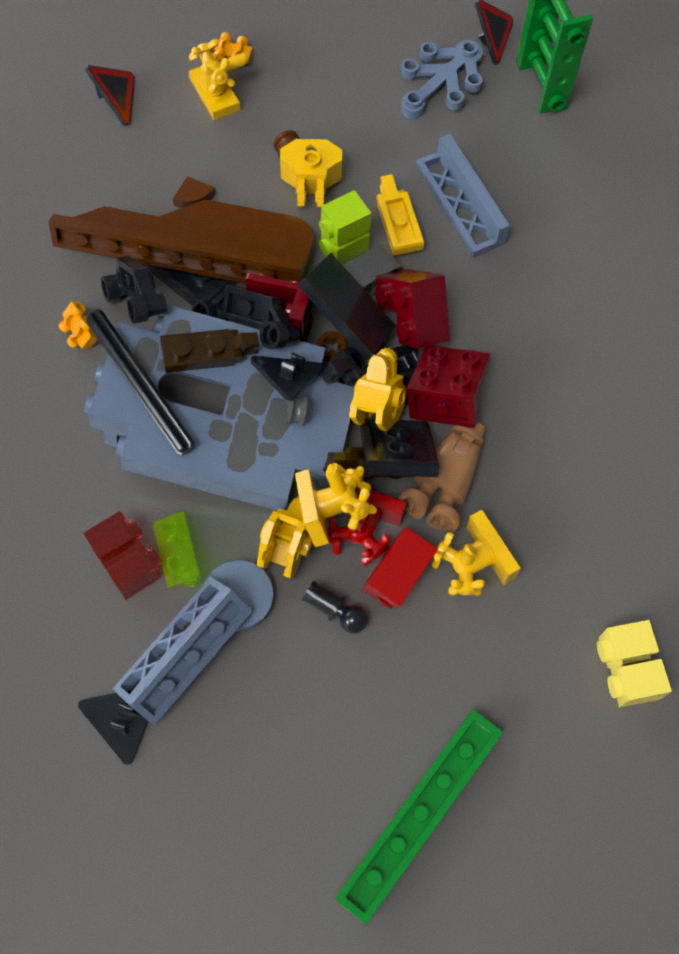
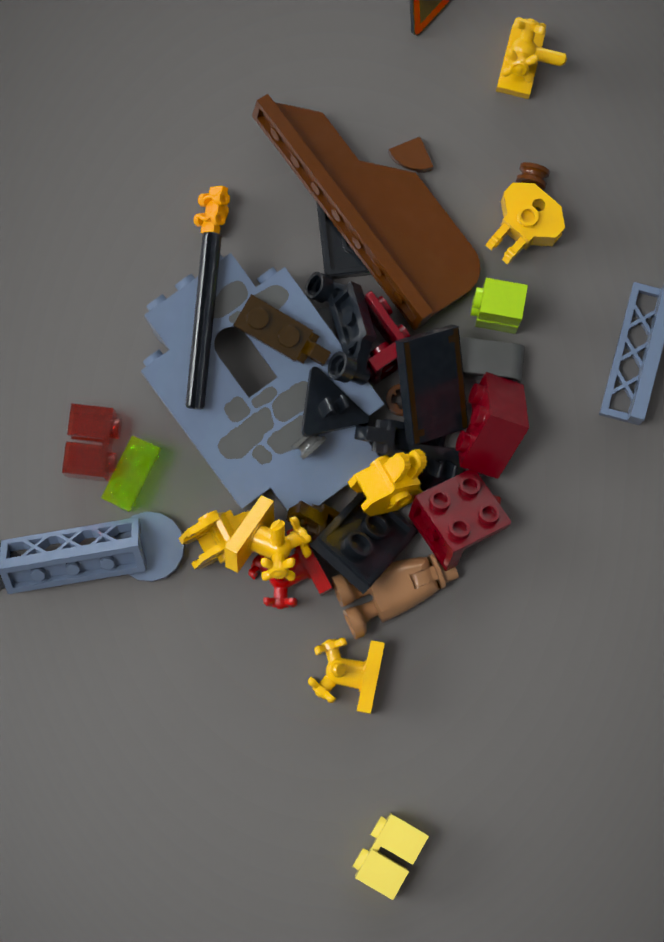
camera: 45 degrees right, 15 degrees up
(138, 283) = (278, 229): black plate -> none
(227, 49) = (571, 34): light orange piece -> none
(352, 618) = (216, 637): black pin -> none
(398, 218) = (563, 327): yellow hinge -> none
(399, 569) = (284, 632): red hinge -> none
(418, 817) = (138, 820): green plate -> none

